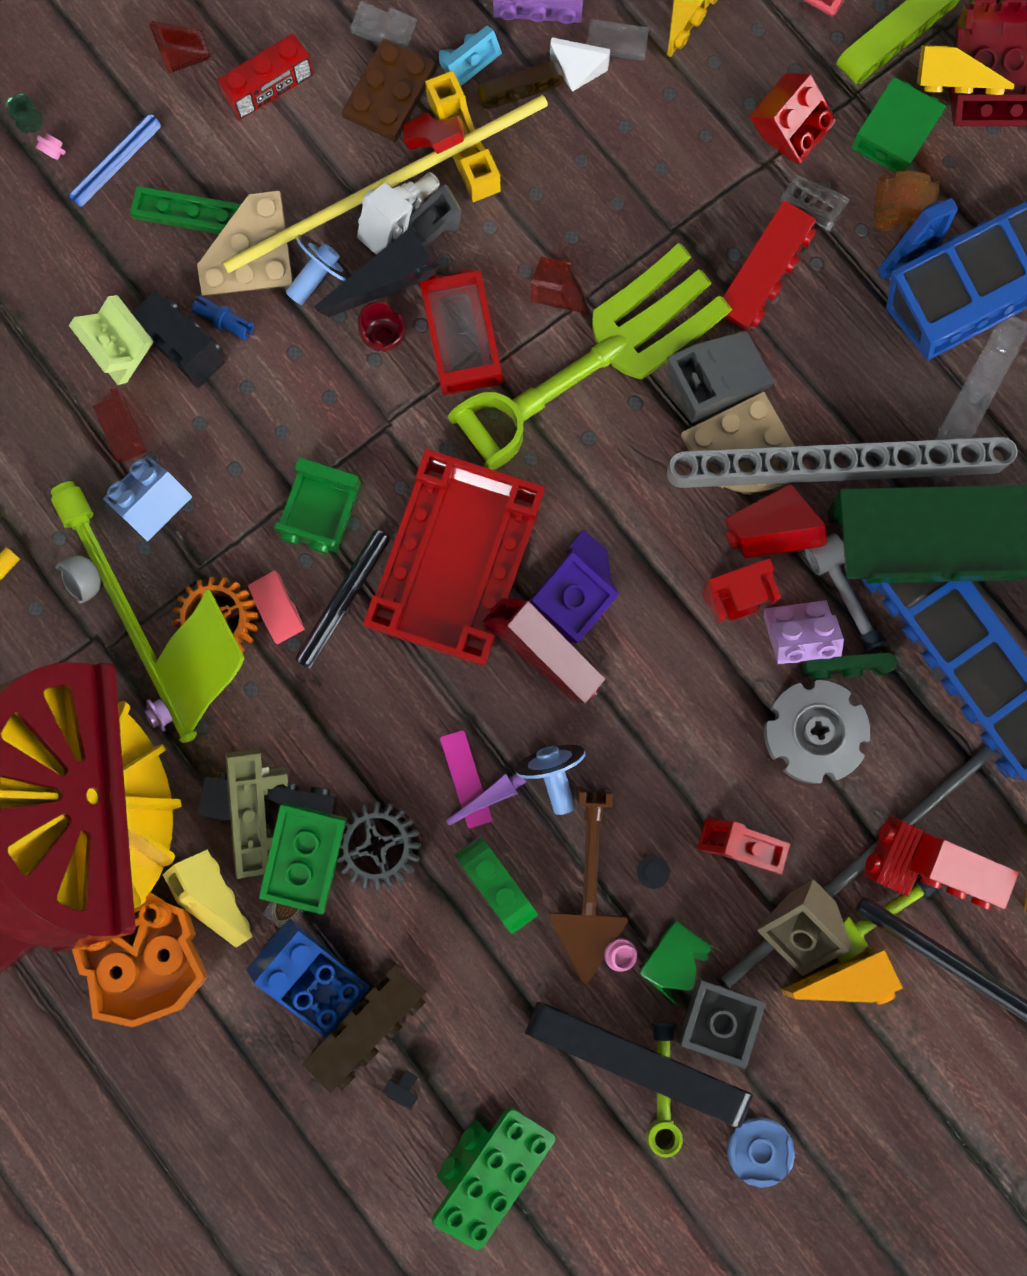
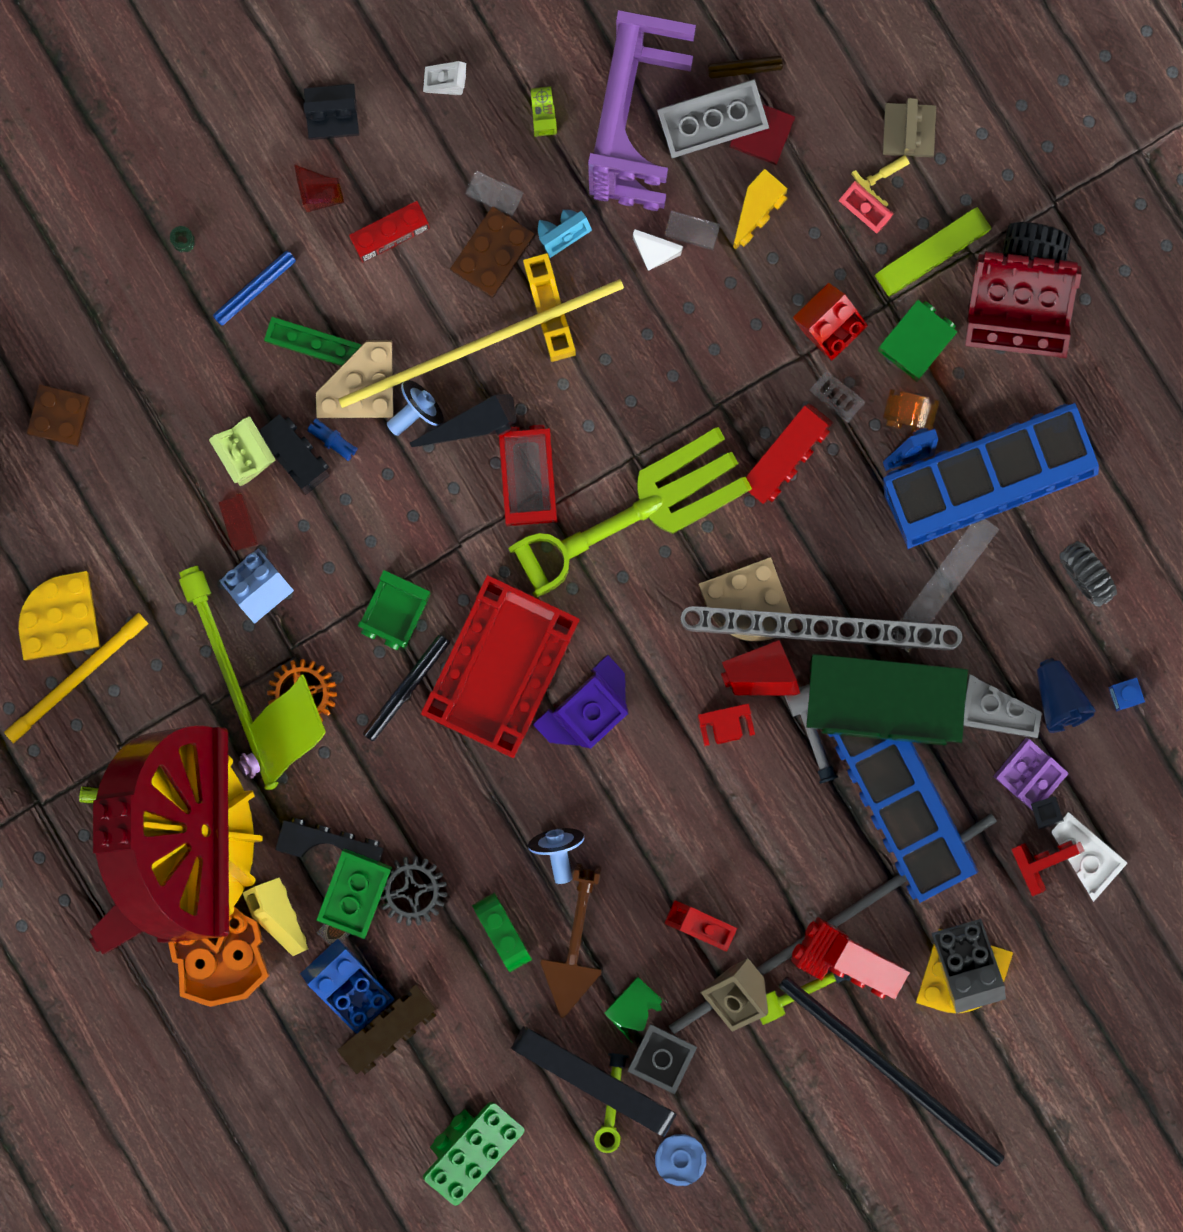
camera: 10 degrees right, 5 degrees up
(50, 146) = (201, 271): bright pink plate -> none
(79, 577) = (197, 646): light grey hair -> none
(247, 786) = (314, 866): olive hinge -> none
(275, 607) = (351, 689): coral slope -> none
(380, 327) = (462, 465): dark red hair -> none
(388, 211) = (478, 372): white brick -> none
(401, 1092) = (410, 1081): black tile -> none
(433, 133) = (518, 299): red tile -> none
(436, 215) = (516, 376): dark grey slope -> none
(464, 775) = (488, 846): dark pink sticker -> none
(500, 790) = (516, 857): medium lavender piece -> none
(520, 85) = (604, 263): dark brown beam -> none
(544, 648) = (562, 751): slope -> none
(556, 287) = (612, 443): clear red slope -> none
(620, 954) = (592, 998): bright pink plate -> none
(653, 872) = (626, 937): black plate -> none
(717, 374) = (735, 538): dark grey slope -> none
(803, 632) = (771, 762): lavender plate -> none
(805, 754) = (758, 859): light grey piece -> none
(850, 666) = (805, 793): dark green plate -> none
(860, 979) = (768, 1039): light orange slope -> none
(954, 68) = (968, 301): yellow slope -> none

